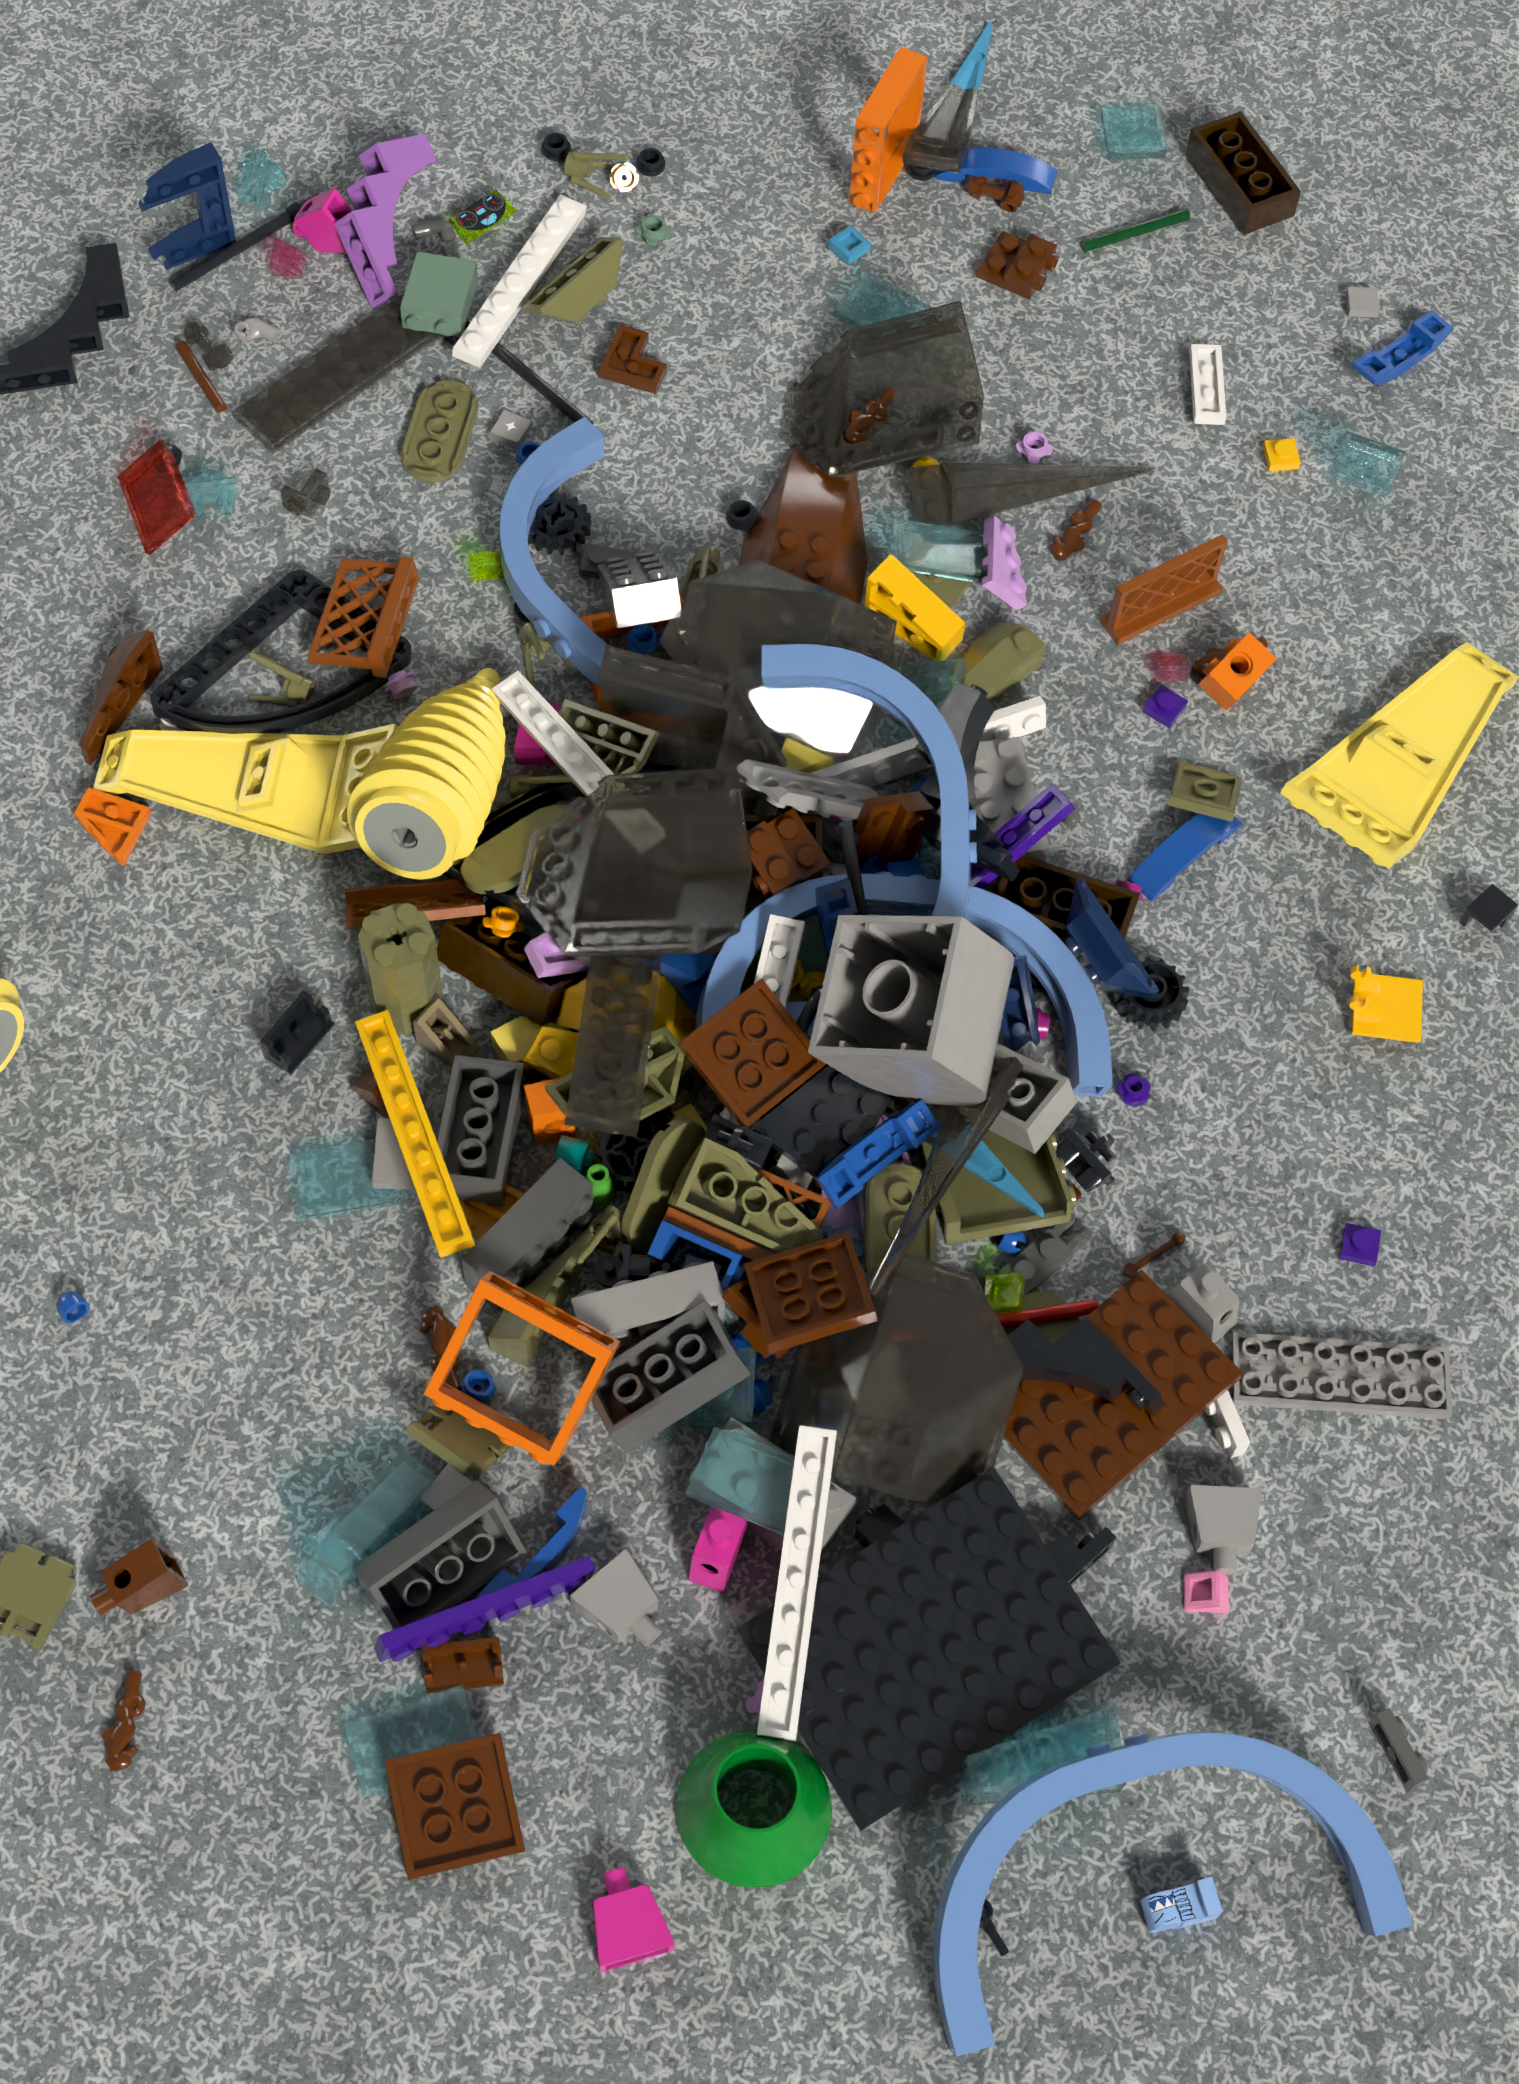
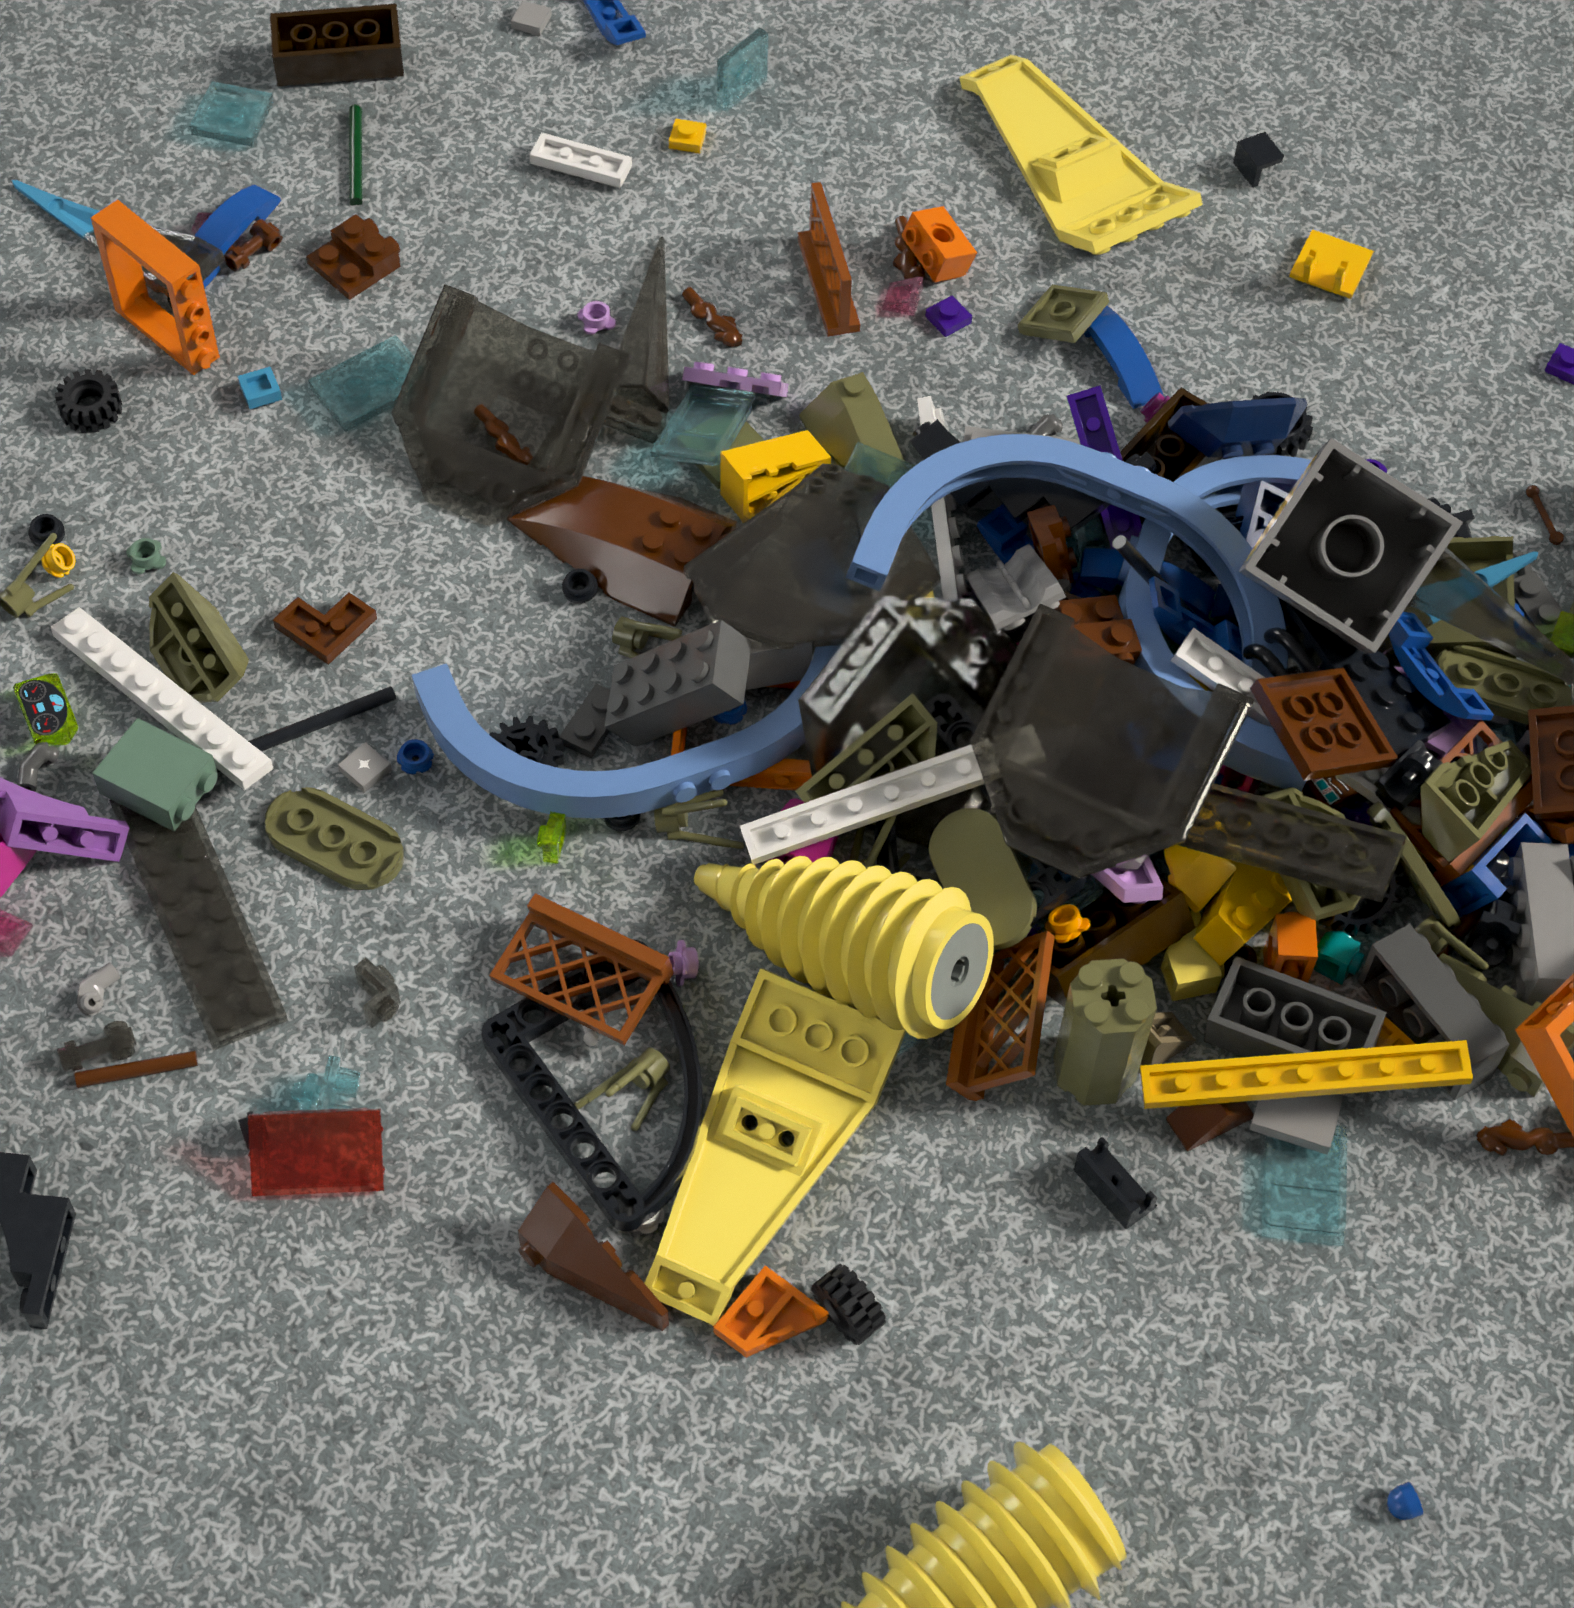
camera: 70 degrees left, 5 degrees down
(126, 866) = (849, 1304): none -> black tyre
(602, 1185) = (1379, 928): bright green cone -> none
(785, 131) = (85, 386): none -> black tyre

